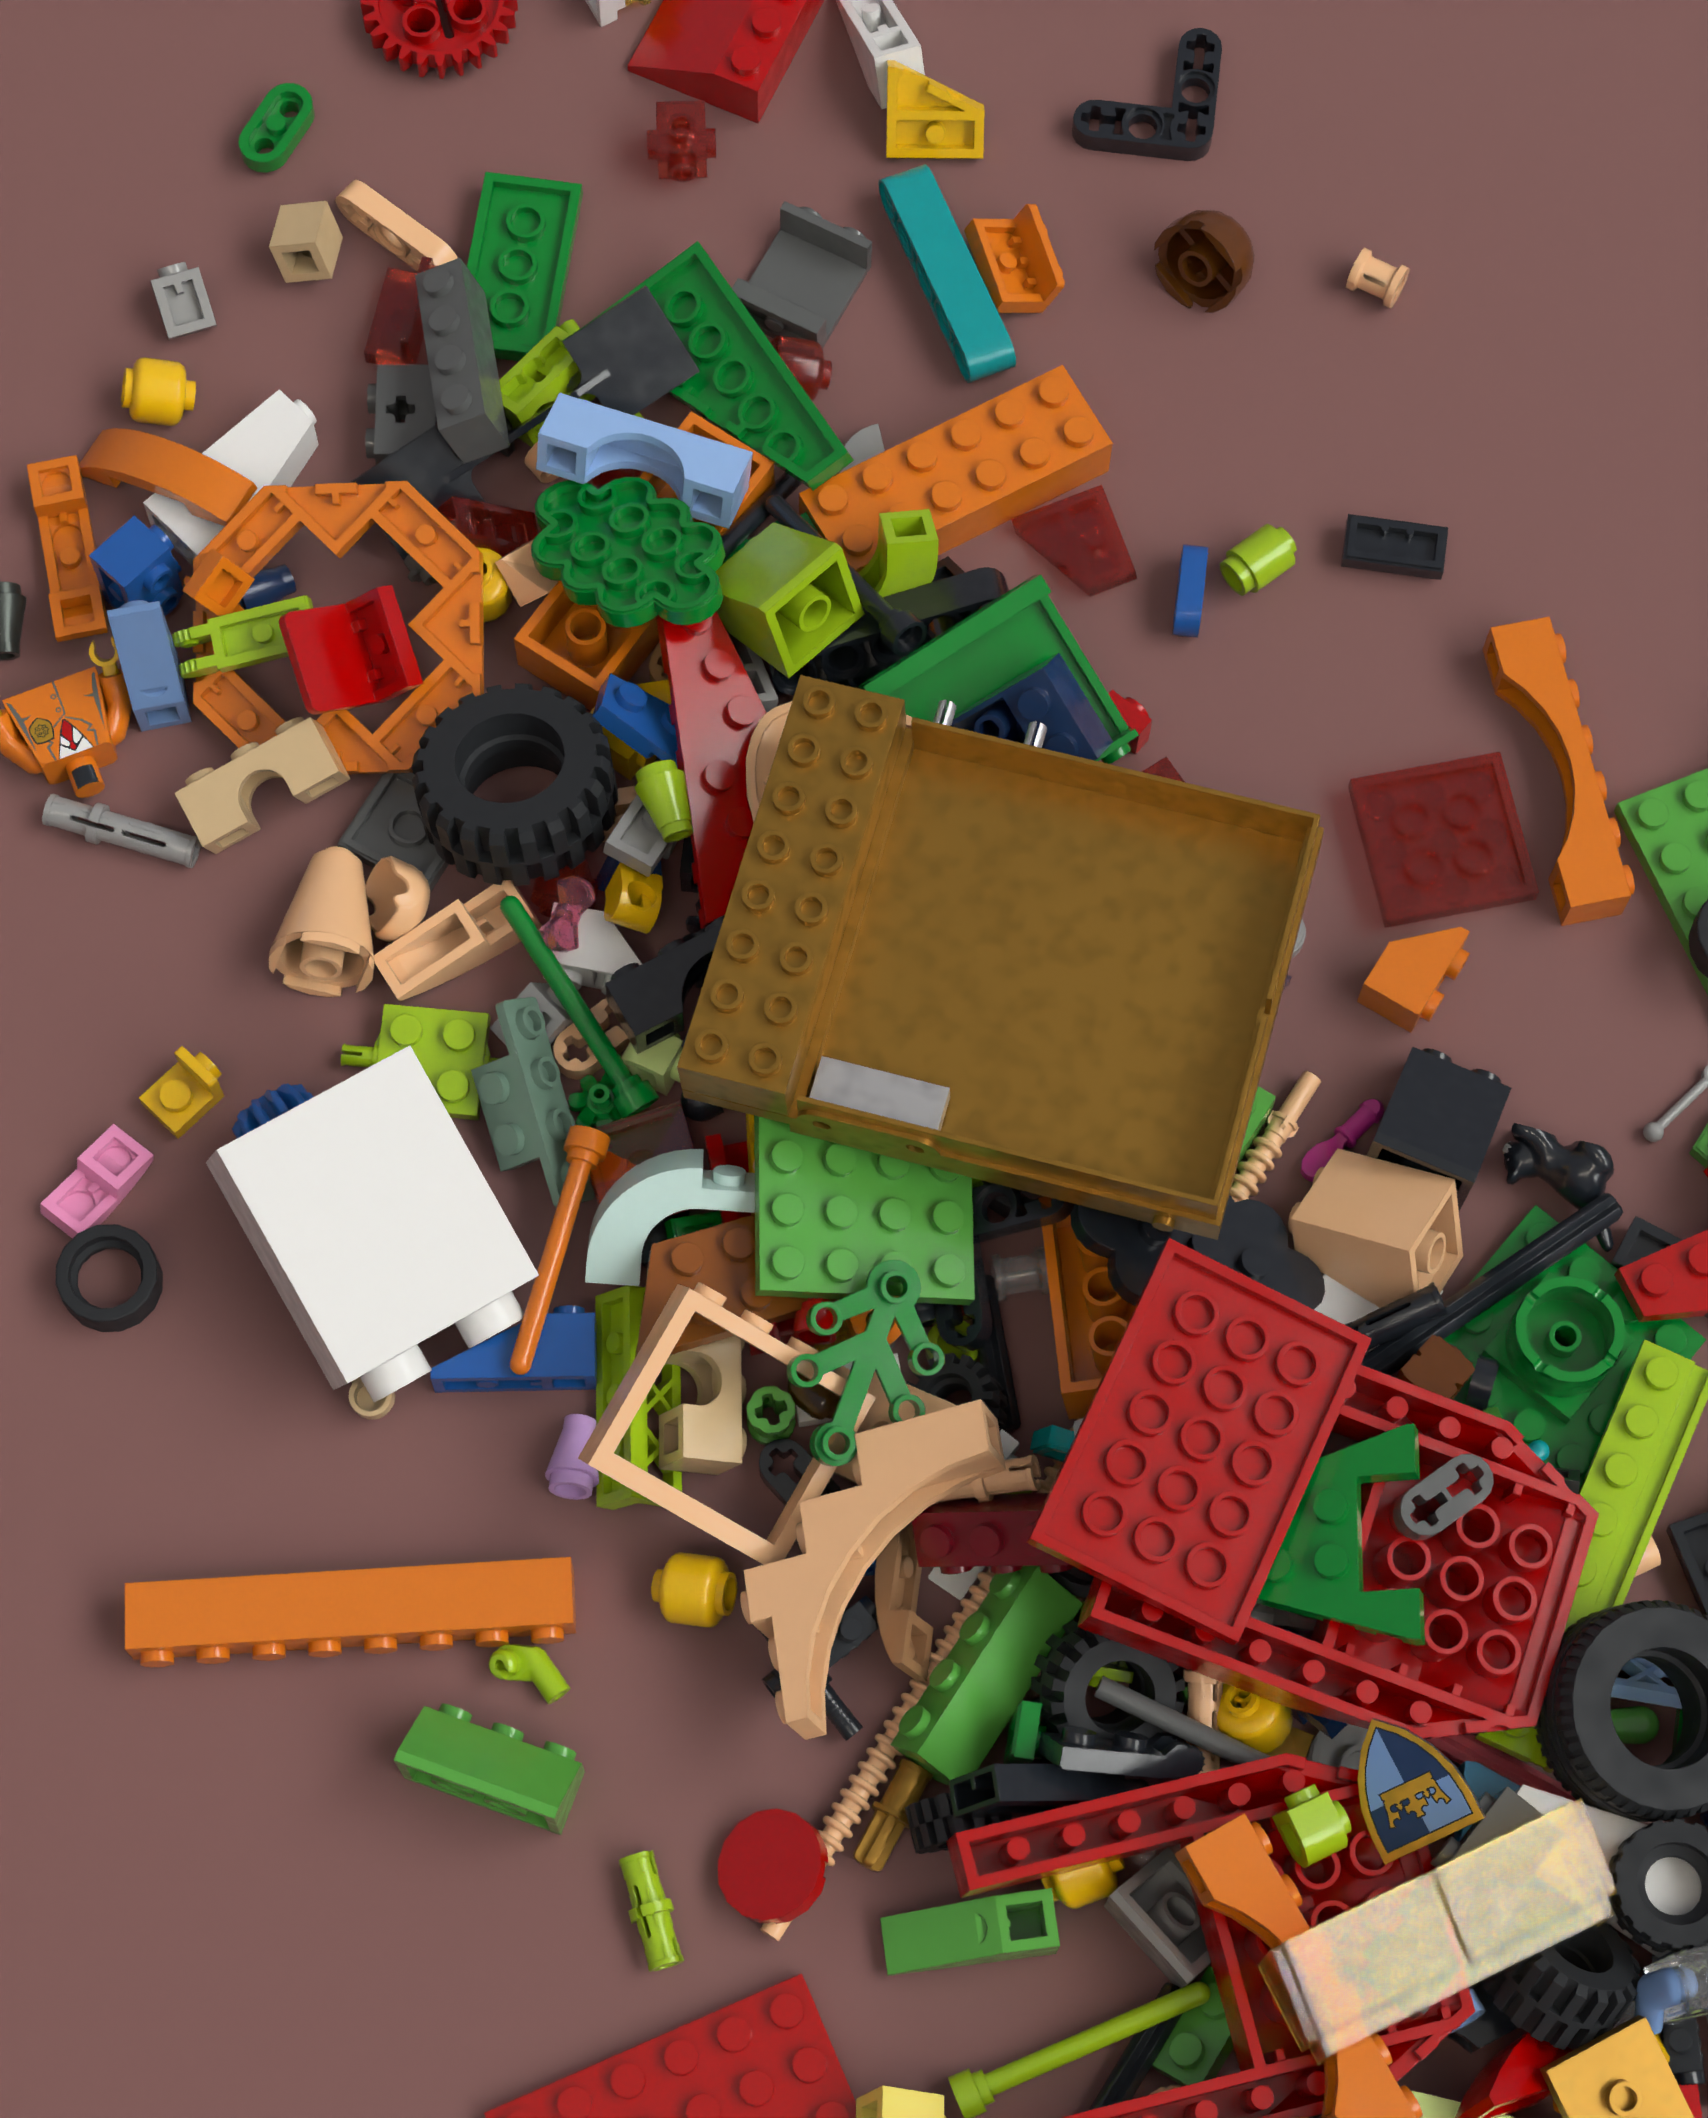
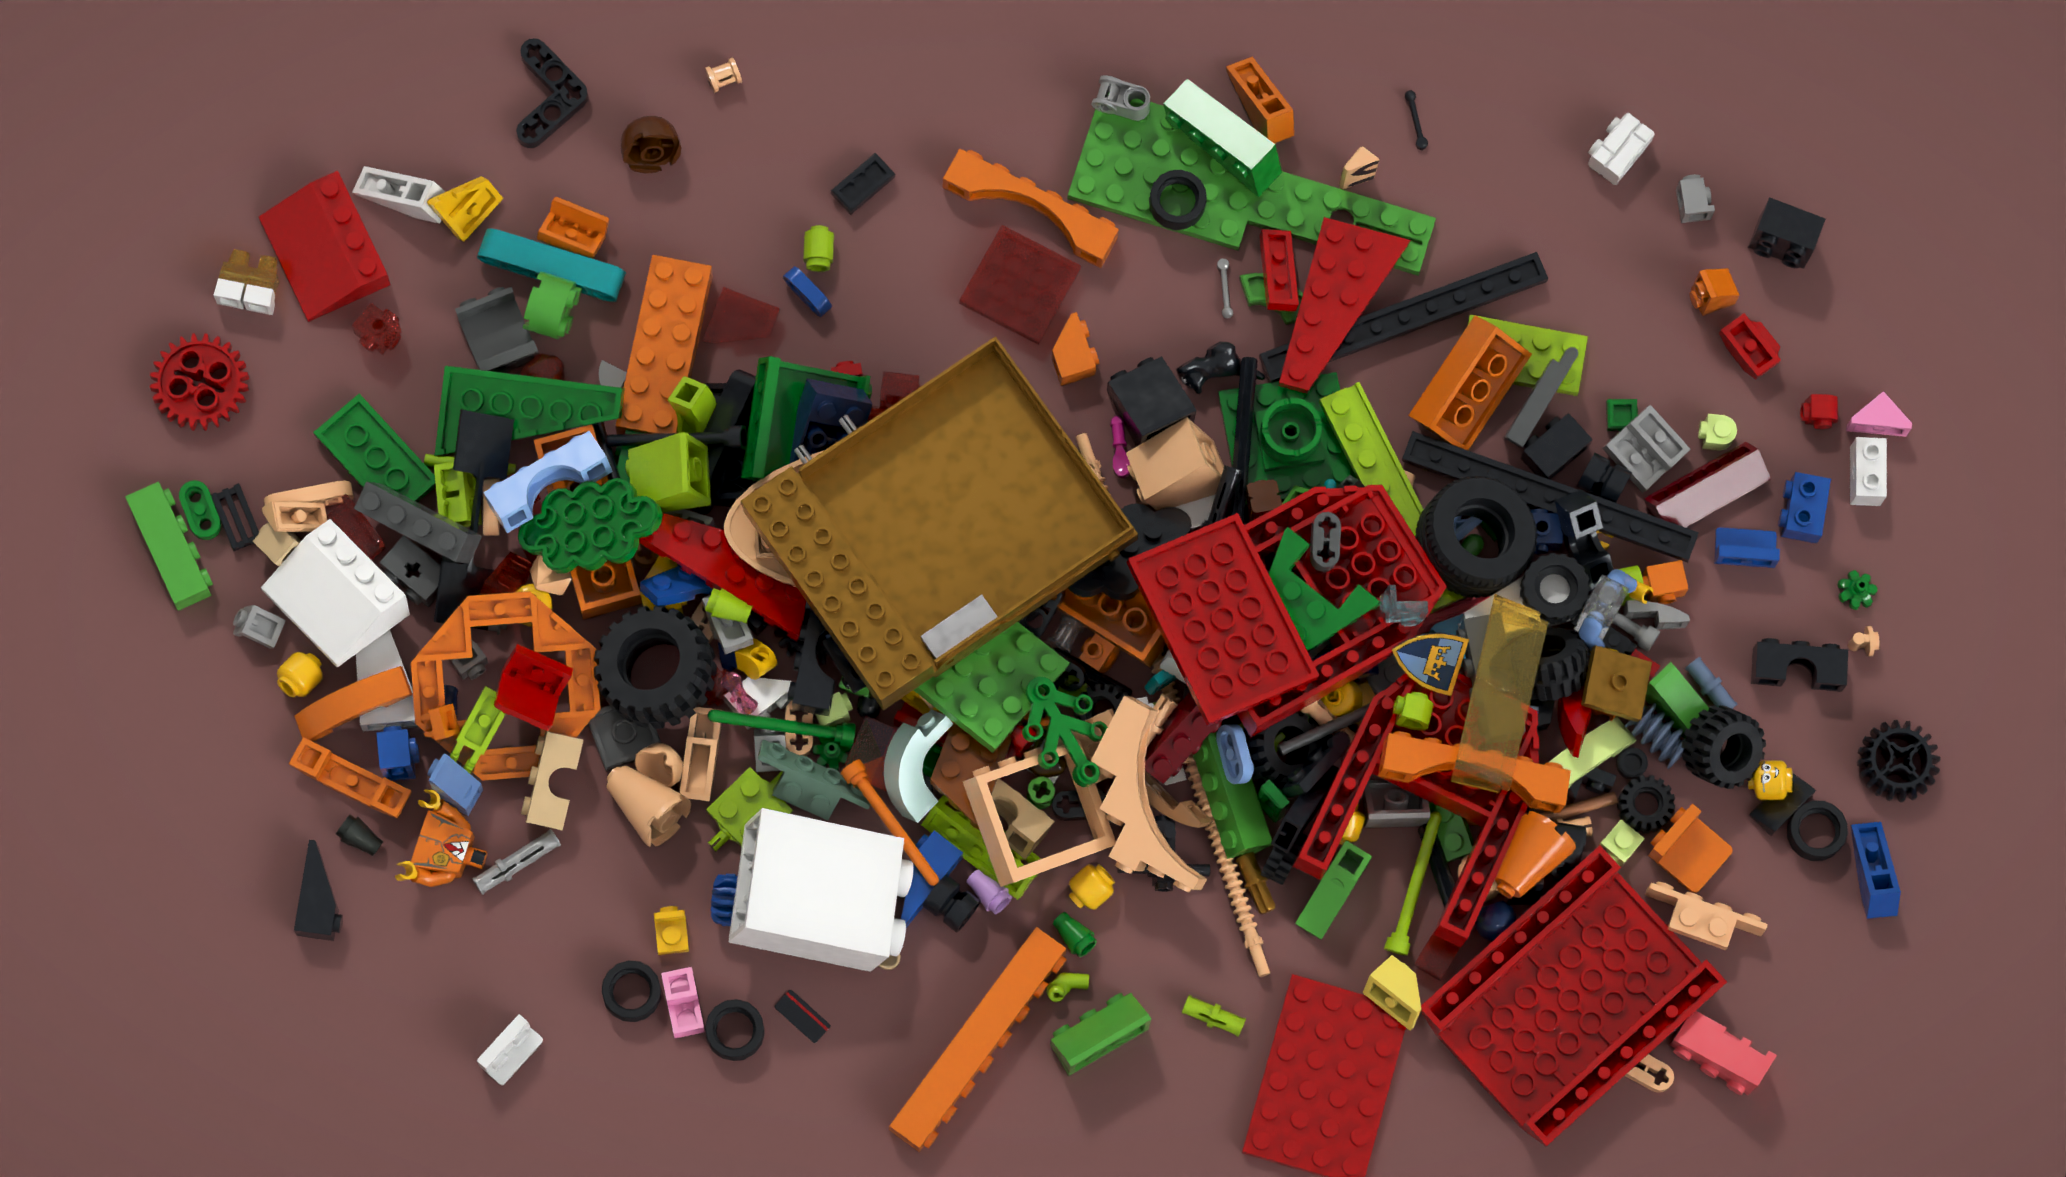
camera: 55 degrees left, 5 degrees up
(39, 1072) = (618, 971): none -> black tyre
(199, 127) = (168, 545): none -> bright green brick
(204, 1353) = (802, 1016): none -> black sticker
(289, 345) = (335, 594): none -> white slope
(293, 160) = (226, 494): none -> black tile
(342, 576) = (473, 666): none -> light grey plate
(355, 229) = (295, 516): none -> light nougat slope
(514, 1416) = (951, 903): none -> black wheel
(608, 1626) = (1075, 935): none -> green cone
(772, 1866) = (1238, 949): red tile -> none
(889, 304) = (551, 305): none -> bright green brick
(1028, 1338) = (1099, 653): none -> orange plate
(1039, 1628) = (1234, 754): none -> light blue plate
(1442, 1694) = (1404, 612): none -> clear light blue bracket
(1482, 1383) = (1284, 485): black tile -> none

